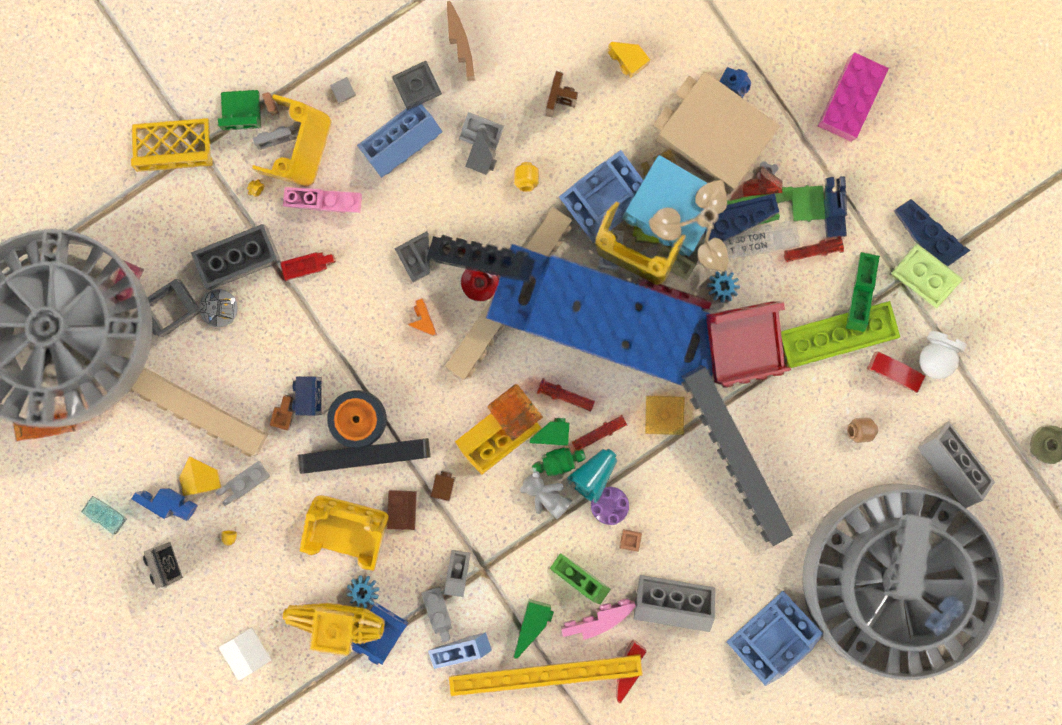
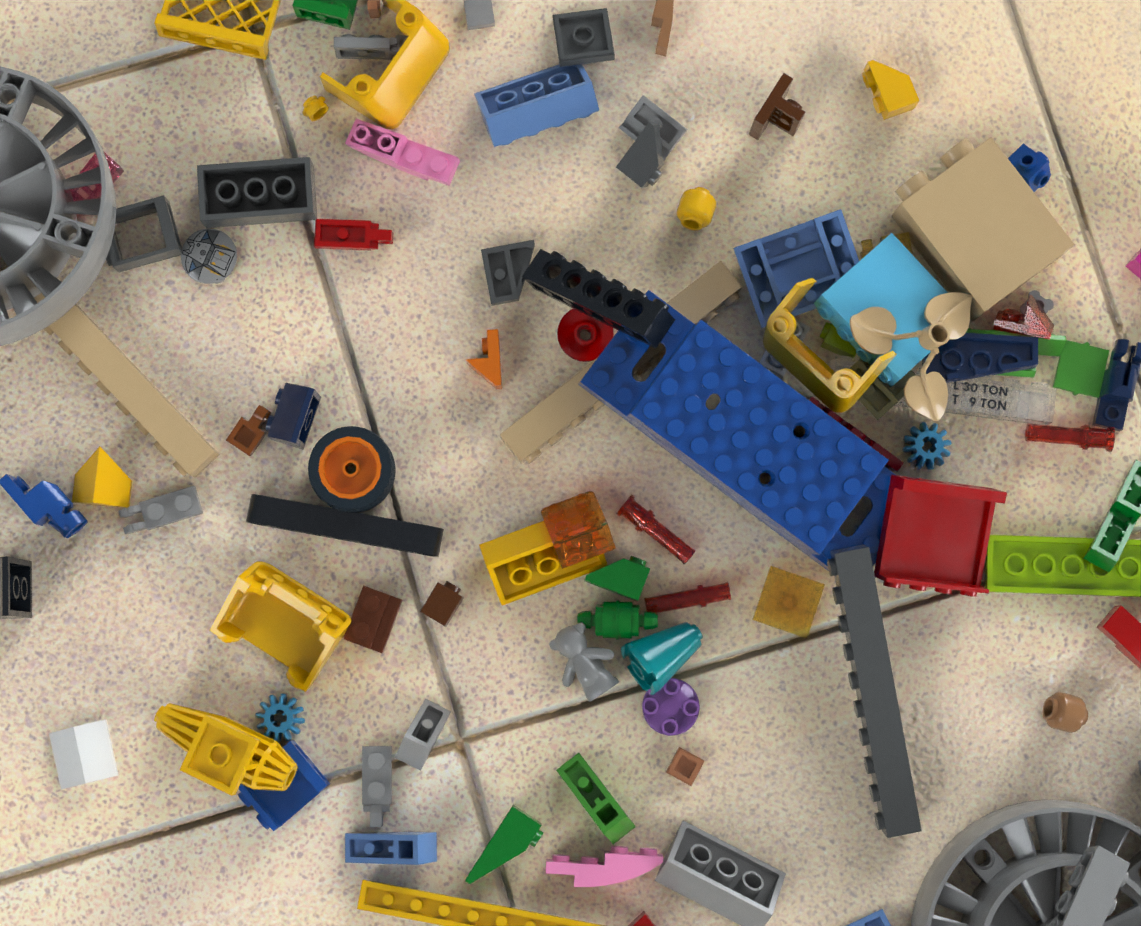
camera: 20 degrees right, 5 degrees down
(228, 537) = (116, 580): yellow hinge -> none

